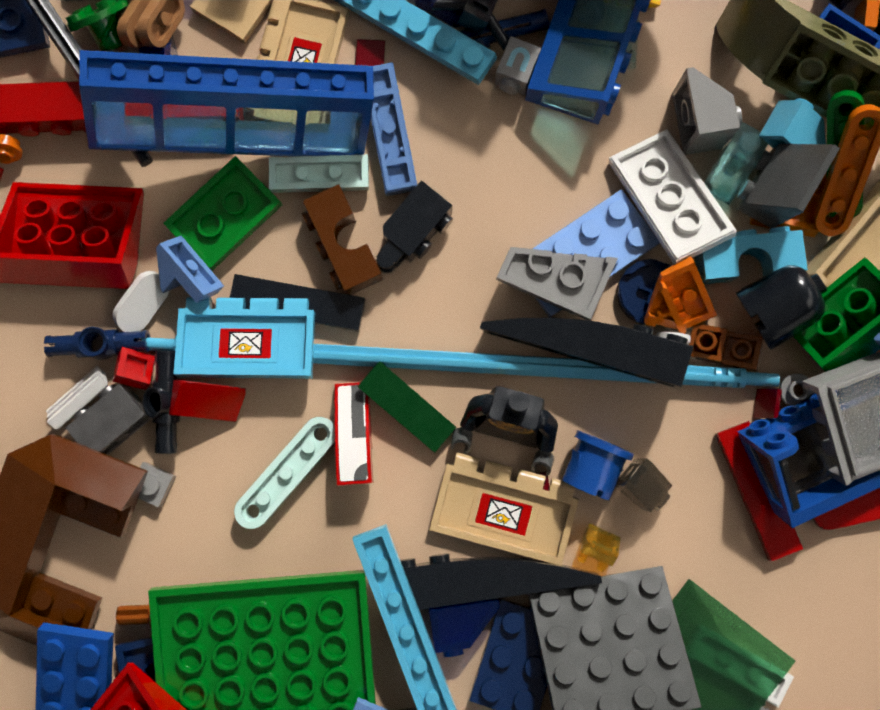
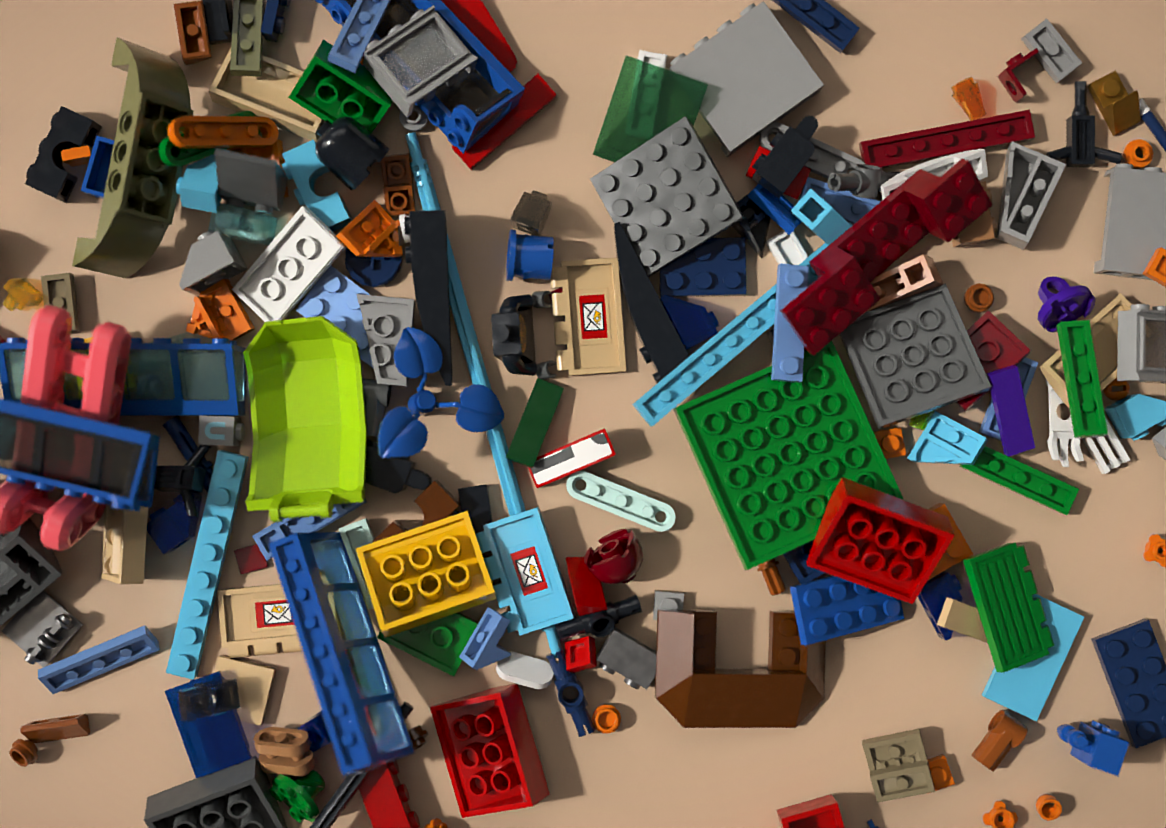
camera: 110 degrees left, 5 degrees up
(56, 373) = (606, 718): none -> orange plate
(77, 398) = (620, 692): white tile -> none
(114, 161) = (417, 736): none -> reddish brown plate
(224, 444) = (616, 558): none -> dark red cylinder
(282, 228) = (425, 574): none -> yellow slope
(446, 250) = (401, 431): none -> blue plant
(490, 237) = (376, 400): none -> dark grey piece
(496, 156) = (305, 419): none -> lime windscreen
(599, 545) = (591, 231): clear yellow tile -> none
(644, 108) = (219, 313): none -> orange slope
(767, 403) = (432, 137): dark red piece -> none

